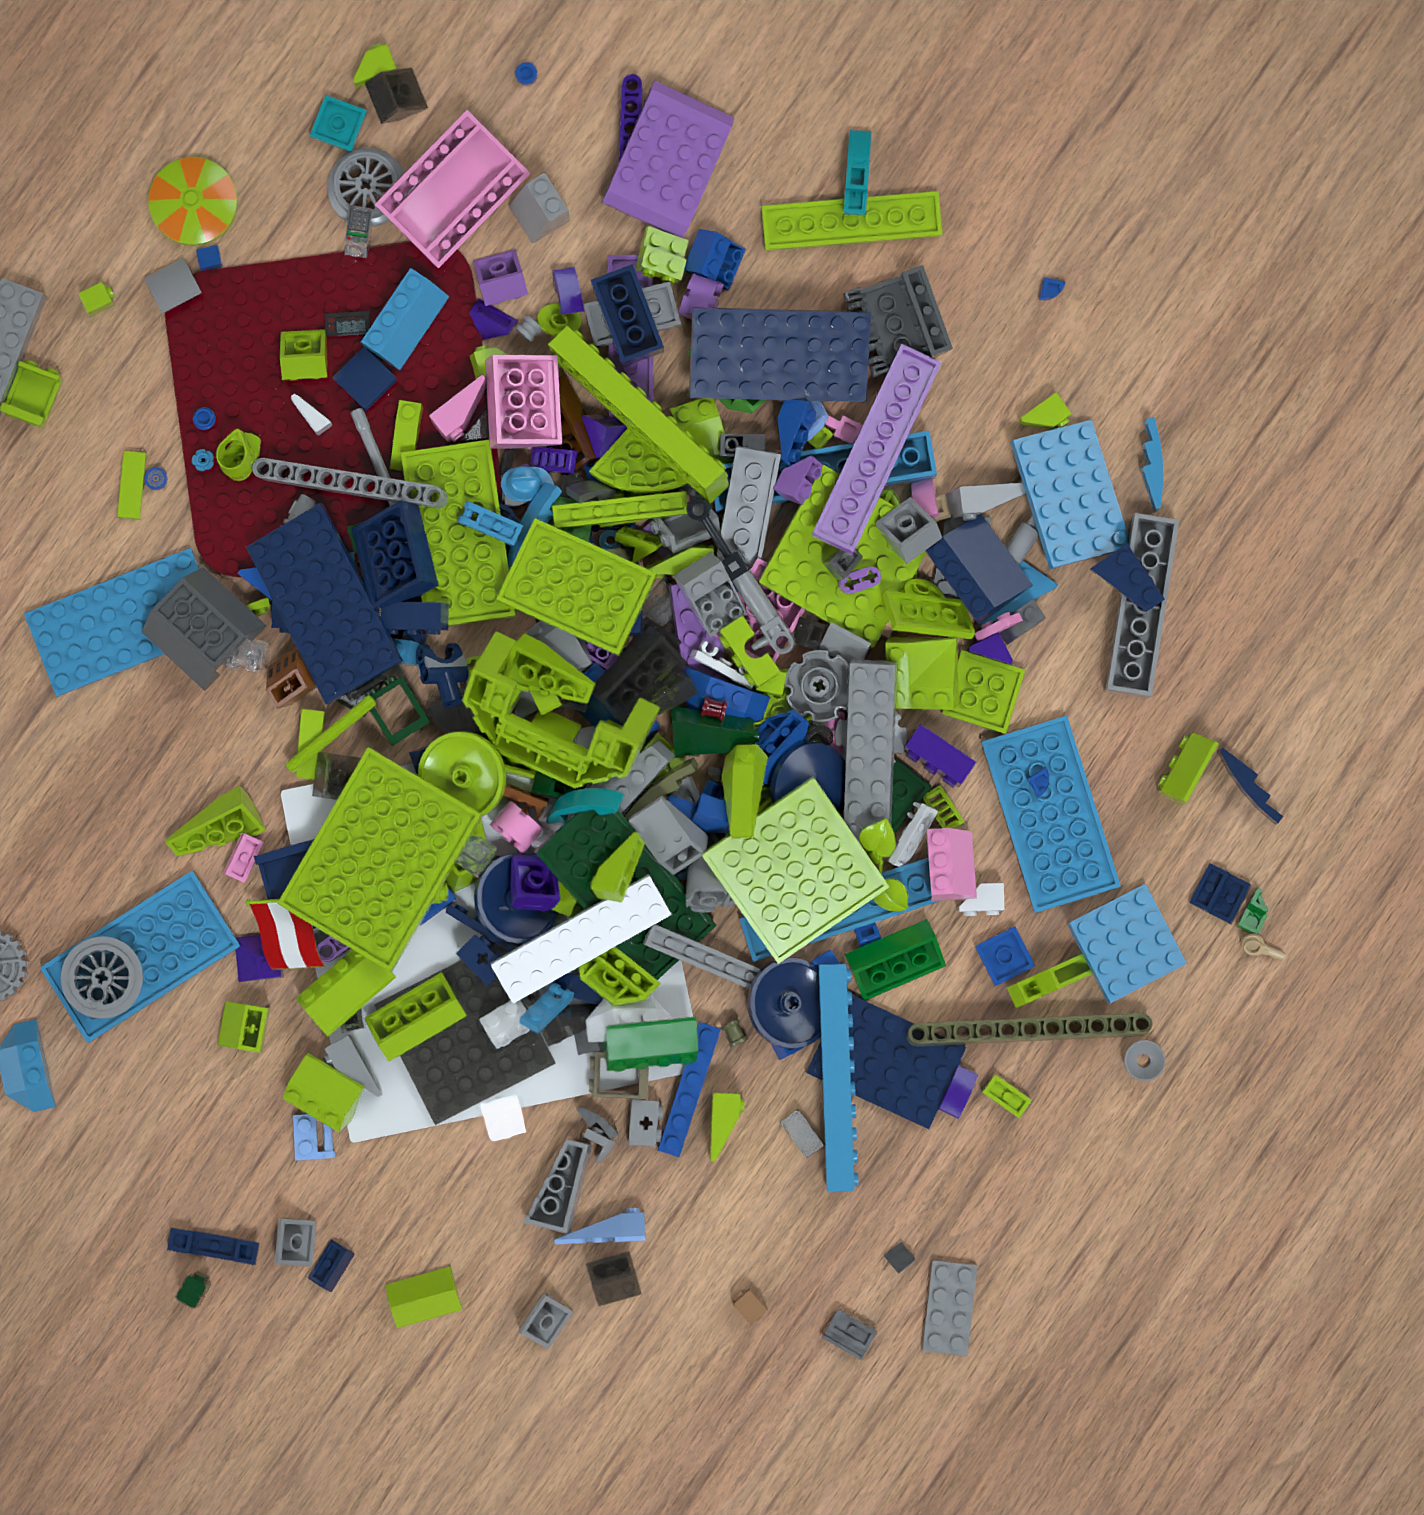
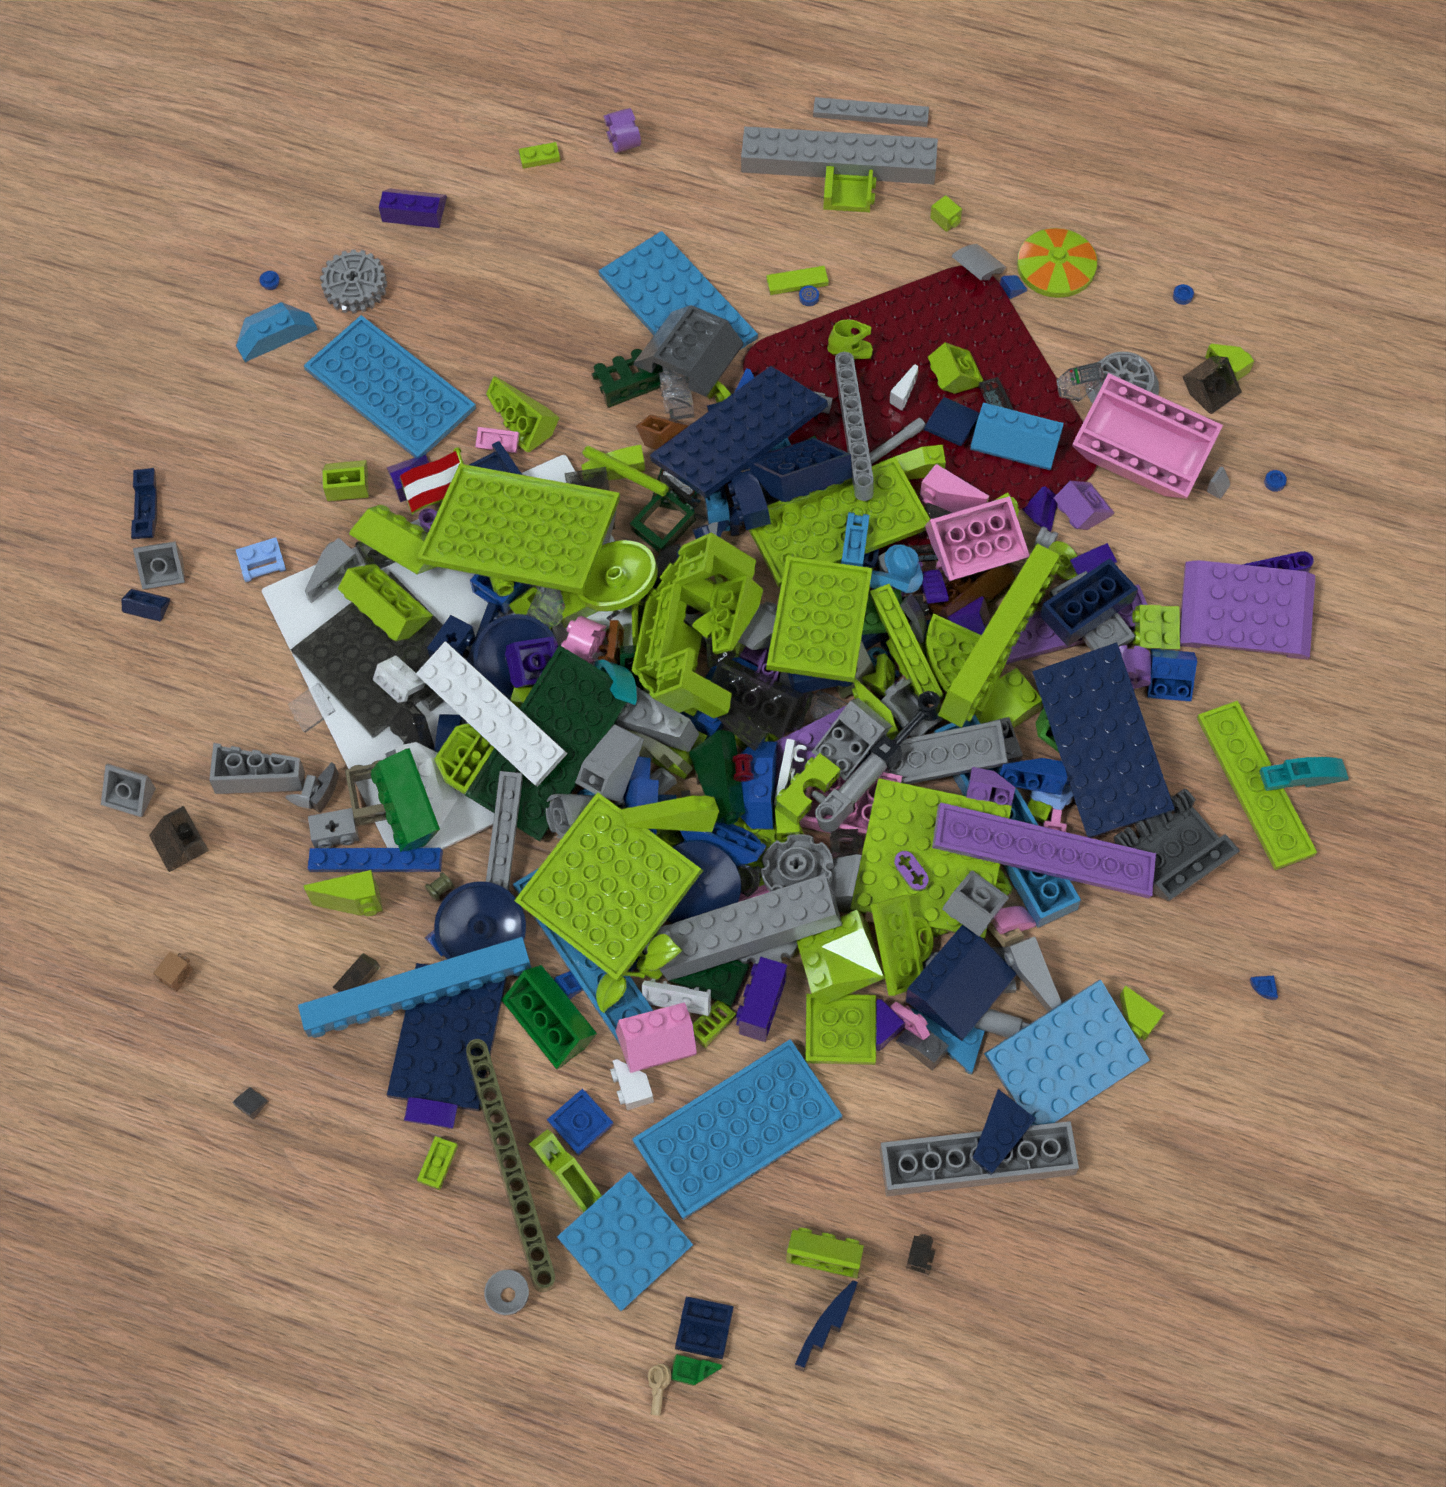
camera: 80 degrees right, 20 degrees down
(90, 1006) = (361, 355): light grey piece -> none
(185, 704) = (629, 384): none -> dark green fence
(194, 1289) = (99, 495): dark green brick -> none
(202, 466) = (834, 316): dark azure plate -> none
(204, 418) = (872, 312): blue plate -> none
(273, 83) = (1183, 294): none -> blue tile
(323, 1093) = (297, 549): lime slope -> none
(338, 123) = (1168, 348): teal plate -> none
(423, 1297) = (129, 685): lime slope -> none
(514, 132) = (1219, 483): none -> light grey slope
(539, 208) = (1160, 517): light grey slope -> none
(546, 1008) = (418, 704): dark azure plate -> none
(617, 871) = (562, 722): lime slope -> none
(619, 1228) = (224, 830): light blue wedge -> none
(826, 959) = (534, 951): blue slope -> none
(842, 563) = (921, 847): flat silver slope -> none
(849, 1334) = (163, 1073): flat silver plate -> none
(949, 1308) = (209, 1166): light grey plate -> none
(1039, 781) = (766, 1105): blue tile -> none
(1153, 472) = (1120, 1135): dark azure slope -> none
(1210, 683) = (921, 1254): none -> clear smoke brick

